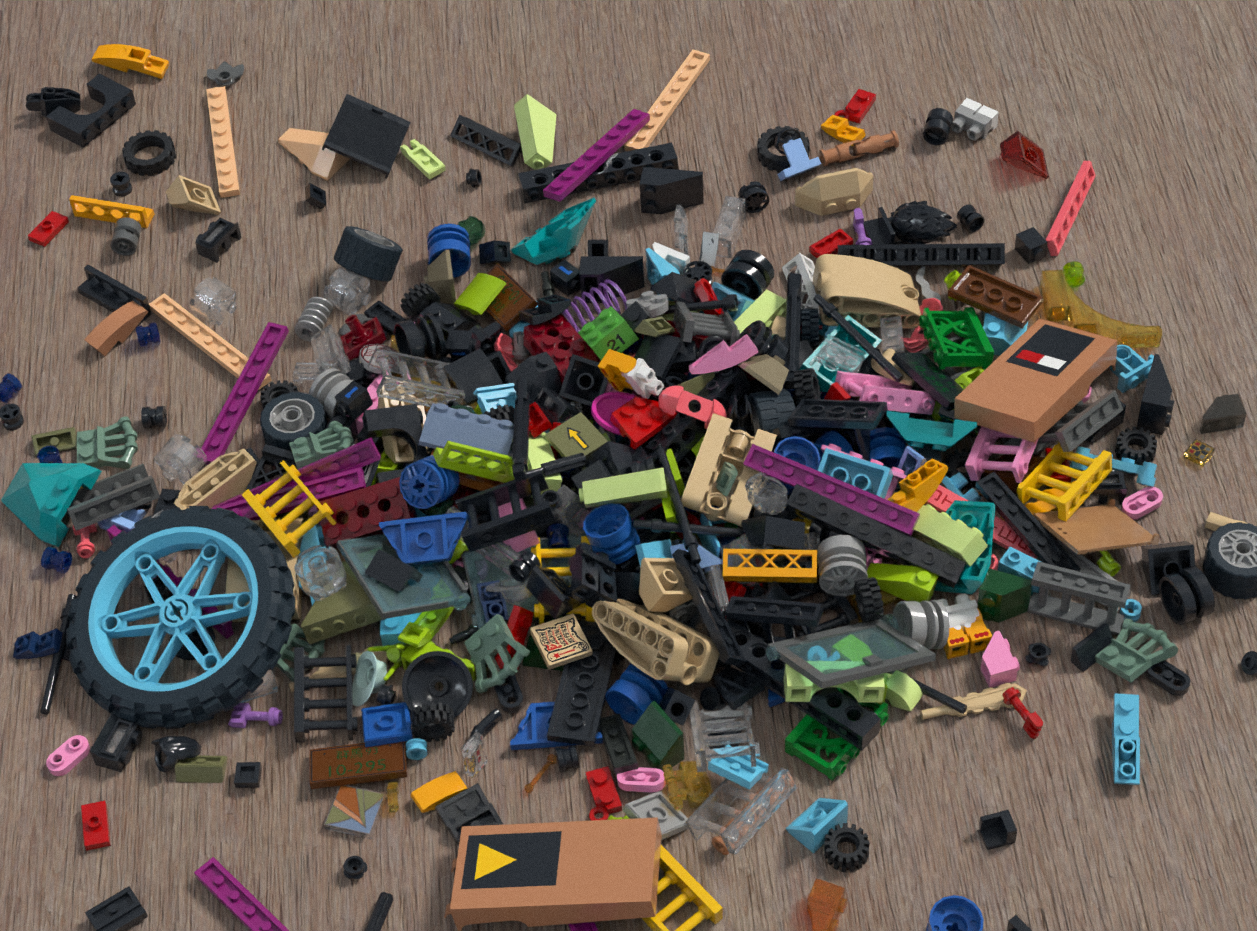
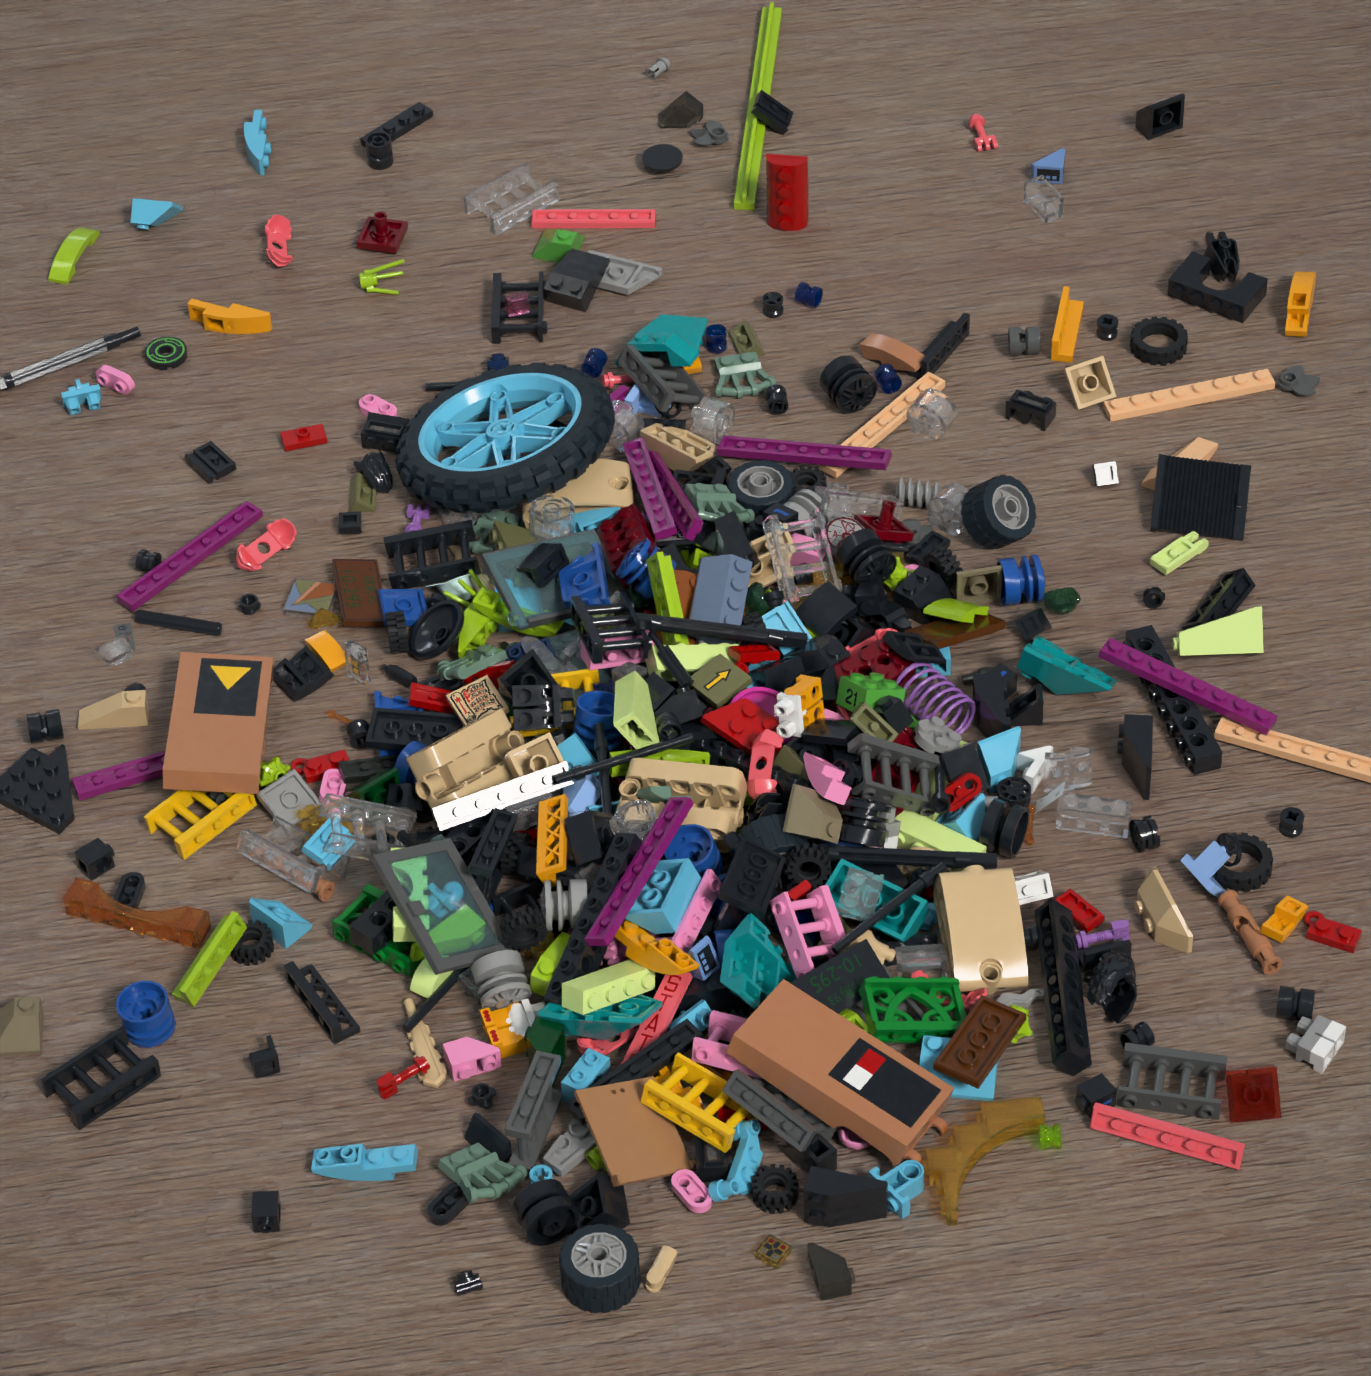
camera: 85 degrees right, 5 degrees down
(48, 228) = (1037, 288): red plate -> none
(157, 356) = (848, 384): none -> black wheel
(257, 843) = (278, 536): none -> coral piece
(269, 513) = (615, 473): yellow fence -> none
(416, 749) = (374, 629): medium azure bush -> none
(522, 568) = (553, 657): black wheel -> none
(534, 686) = (429, 698): none -> red plate
(552, 496) = (621, 657): black plate -> none
(742, 117) = (1291, 822): none -> black wheel
(879, 875) = (210, 959): none -> lime fence
(925, 789) = (319, 1007): none -> black fence
(998, 191) = (1172, 1061): none -> dark grey fence
(1190, 820) = (266, 1211): none -> black brick

